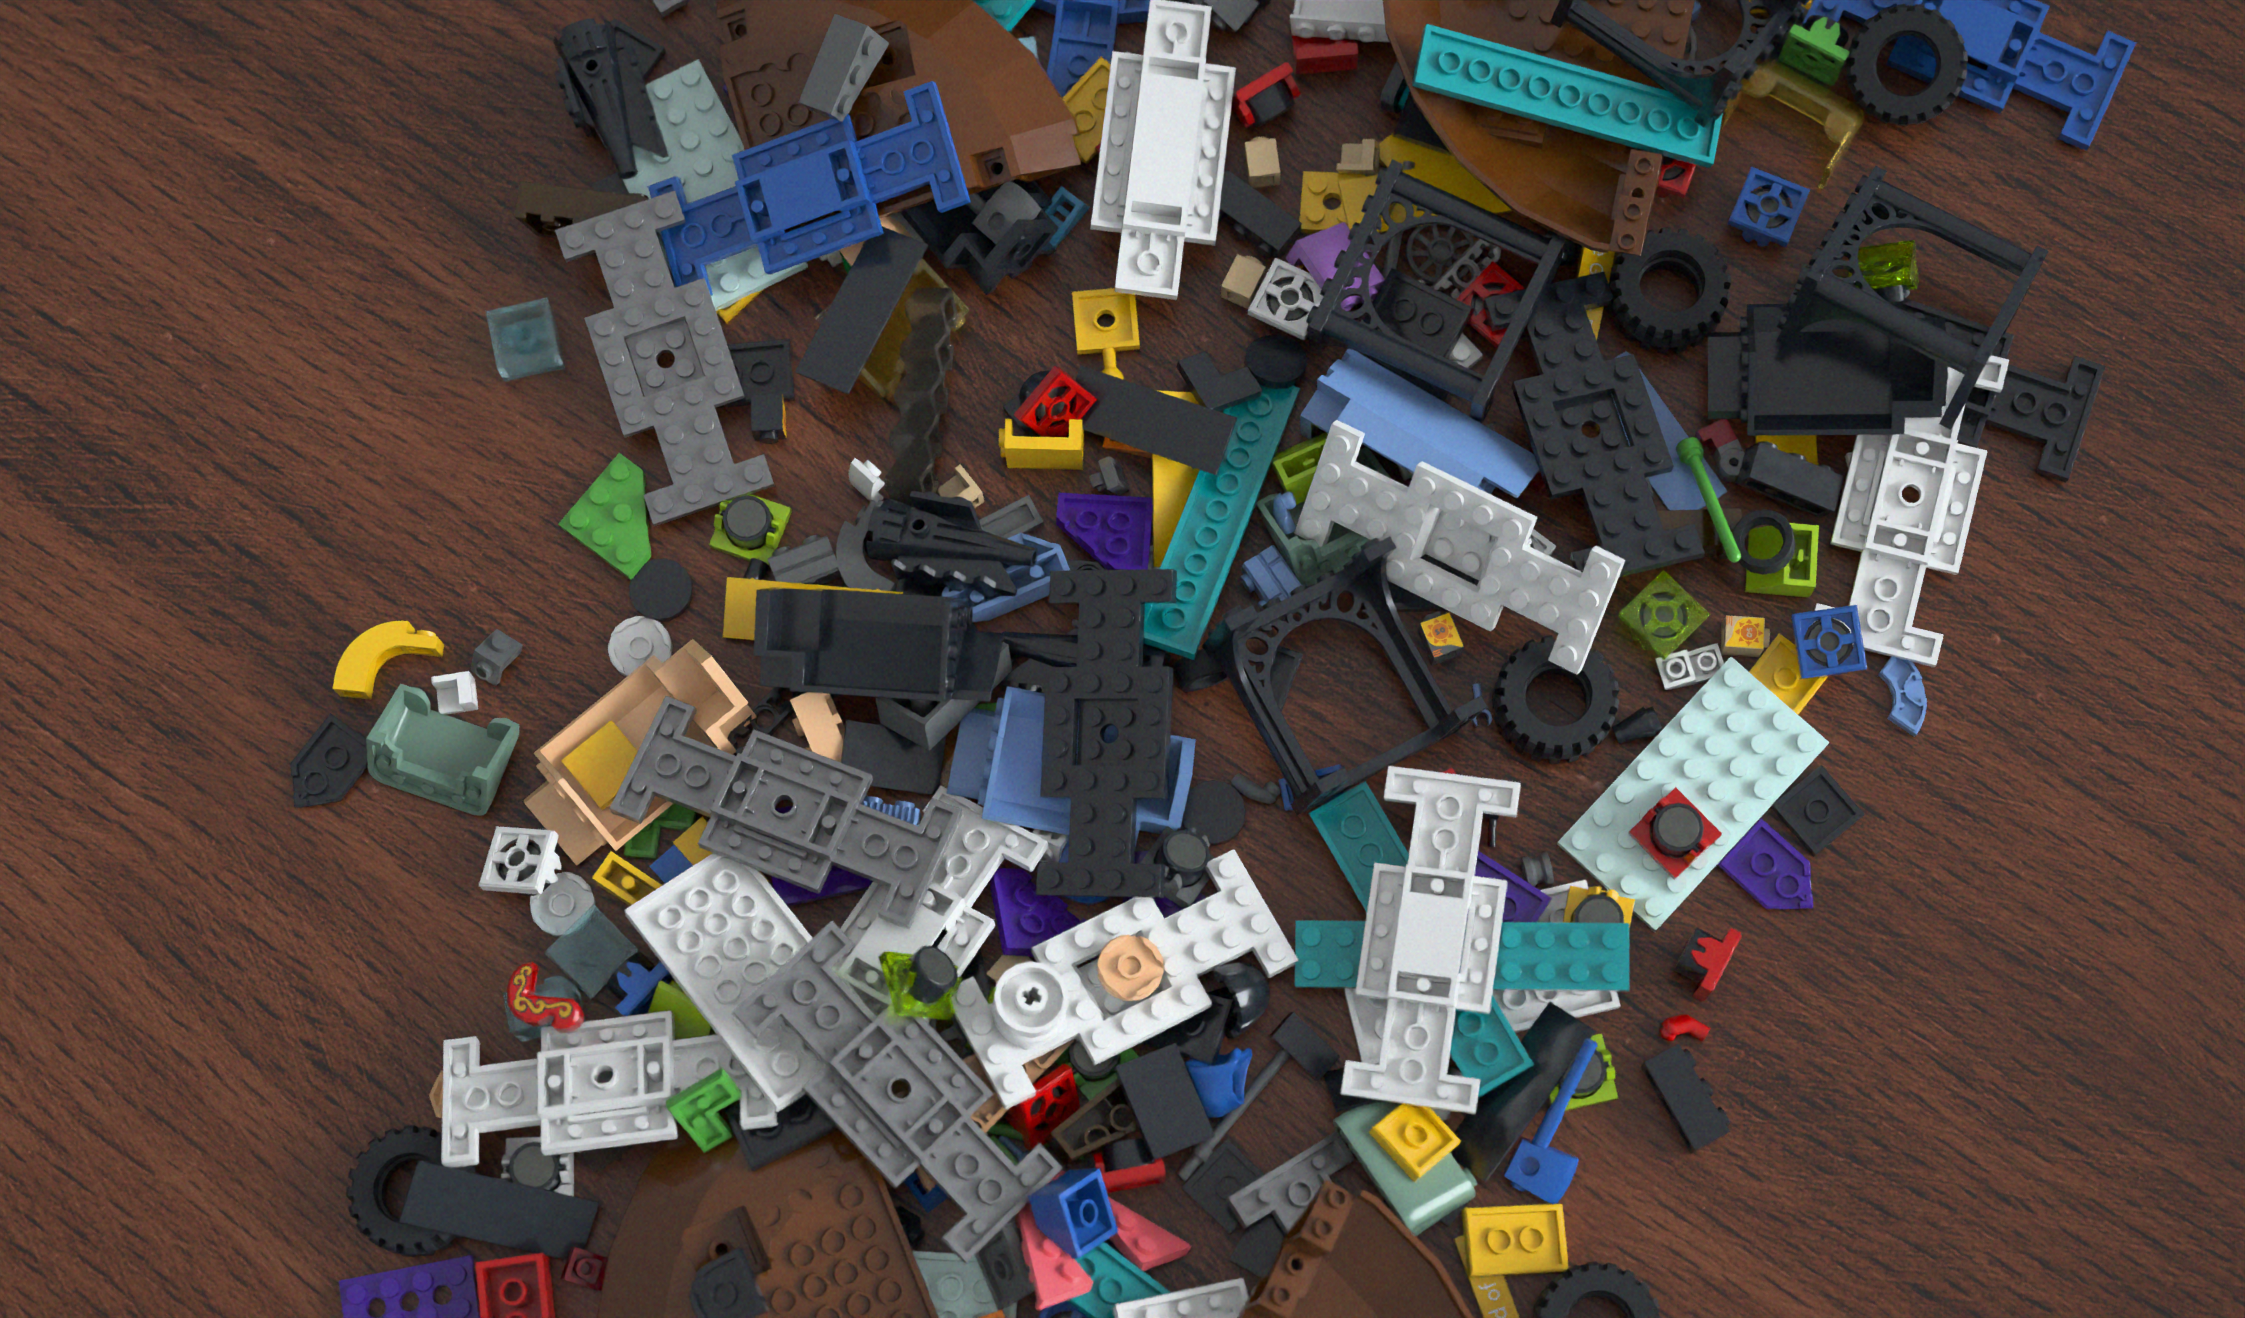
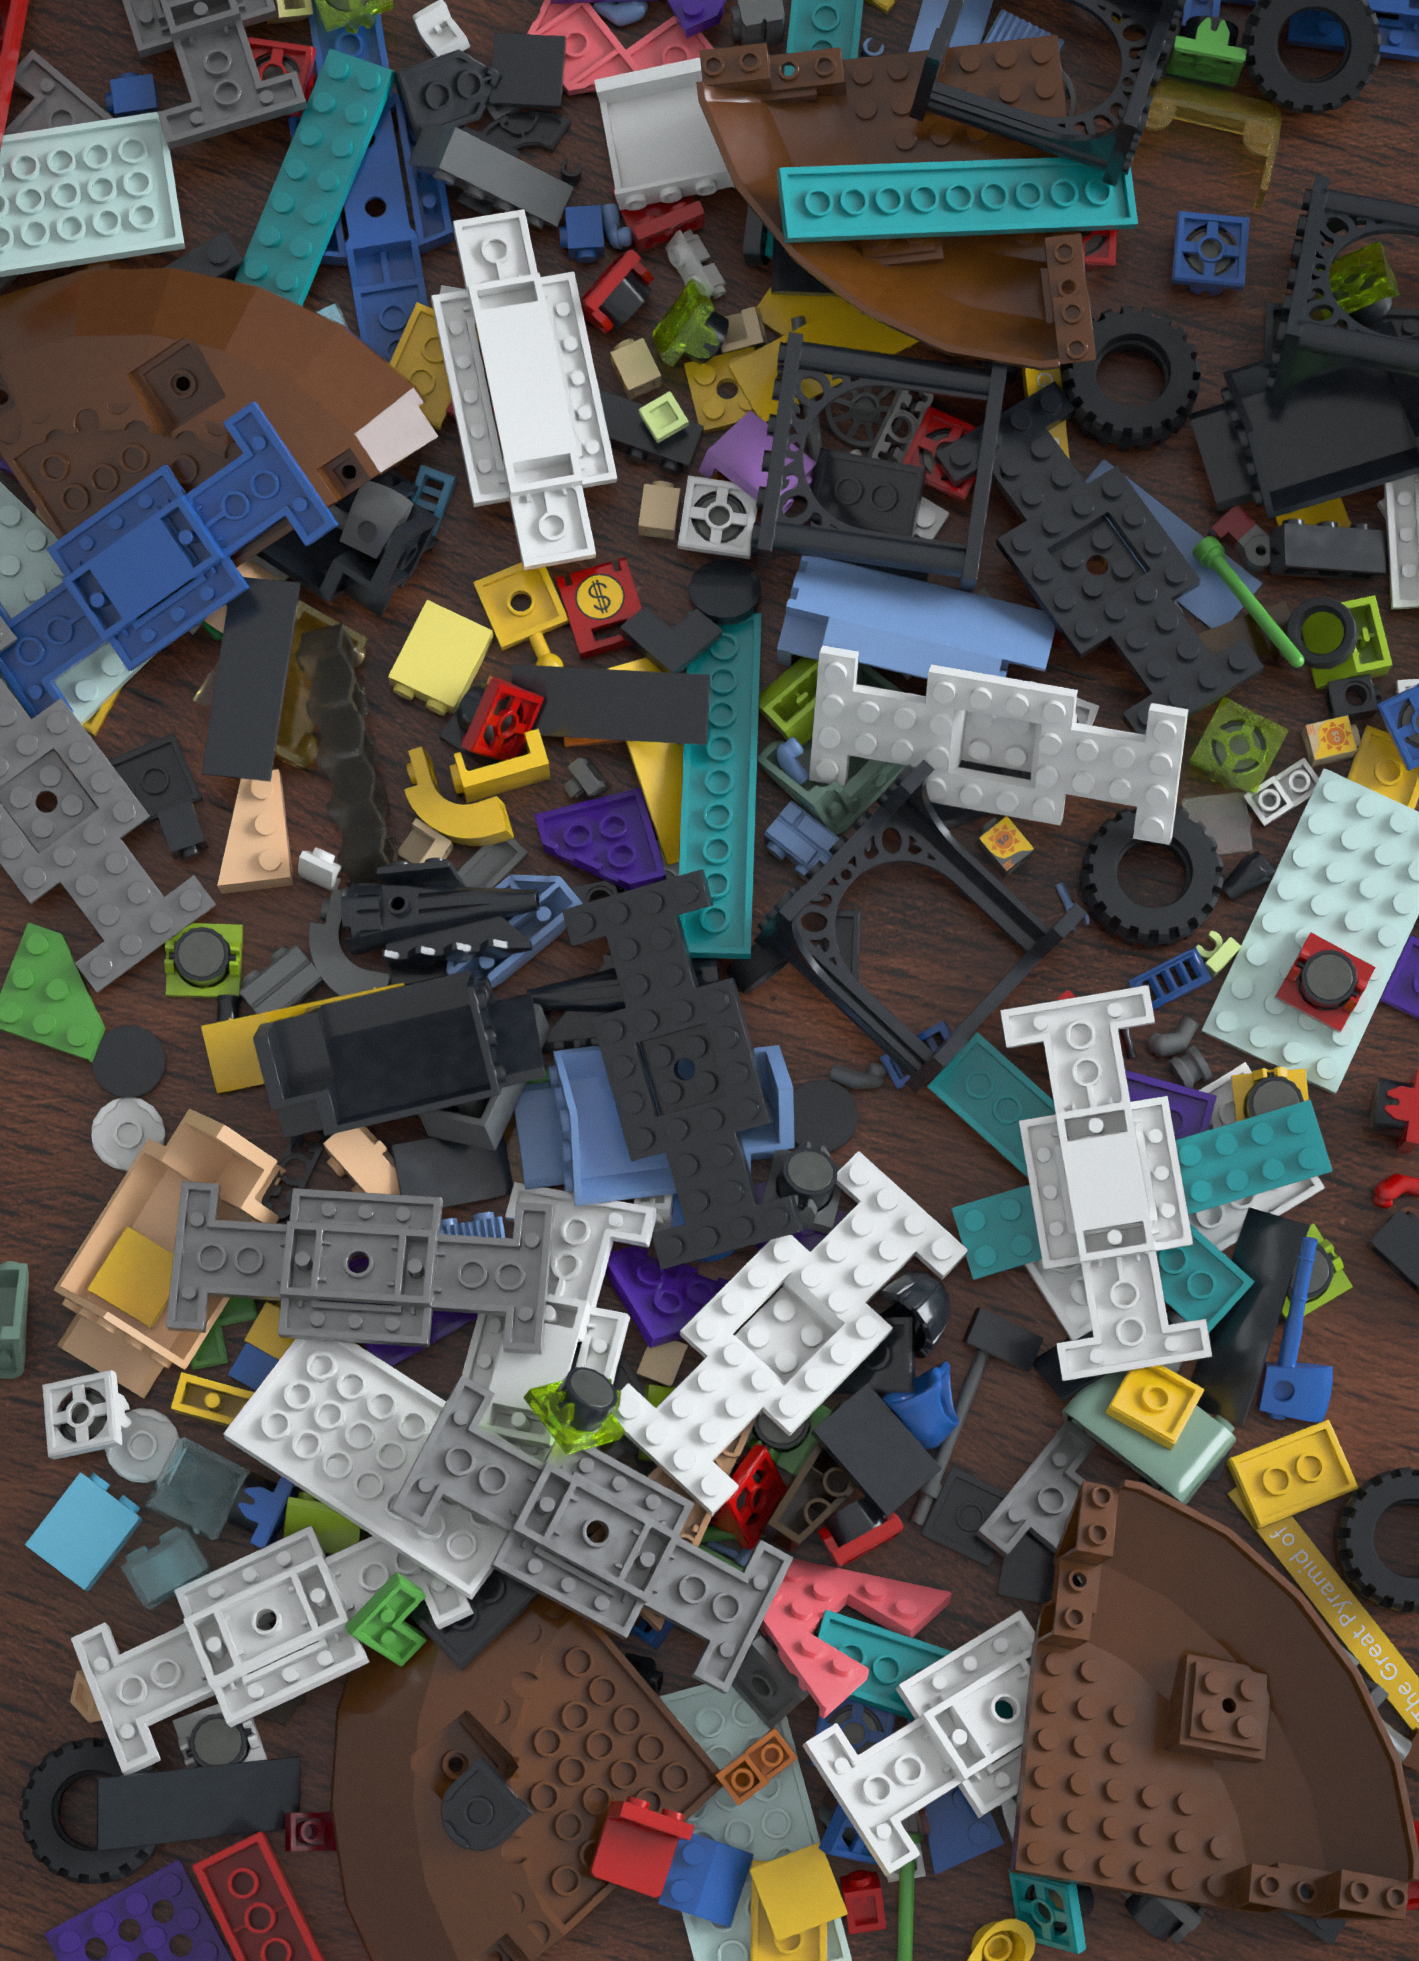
camera: 25 degrees left, 5 degrees up
(488, 956) = (85, 1530): none -> medium azure brick
(540, 1009) = (169, 1572): red animal -> none
(826, 442) = (257, 840): none -> light nougat wedge
(842, 67) = (144, 417): dark grey wedge -> none
(1000, 482) = (468, 824): none -> yellow arch
(1024, 343) = (440, 658): none -> light yellow brick
(1035, 985) = (708, 1373): white wheel -> none
(1074, 1211) = (822, 1599): blue slope -> none
(1130, 967) = (794, 1318): light nougat tile -> none
(1169, 337) = (596, 601): none -> red container
(1255, 44) = (583, 233): none -> blue brick
(1269, 203) = (663, 417): none -> yellowish green tile
(1281, 49) = (612, 229): none -> medium blue arm
(1317, 142) = (693, 324): none -> clear neon green piece
(1335, 85) = (686, 254): none -> white hinge
(1531, 845) = (1173, 1043): none -> dark grey arm
(1558, 802) = (1198, 966): none -> blue slope
(1592, 785) = (1220, 955): none -> yellowish green tile
(1634, 675) = (1225, 820): none -> clear piece
(1784, 597) = (1338, 706): none -> black brick

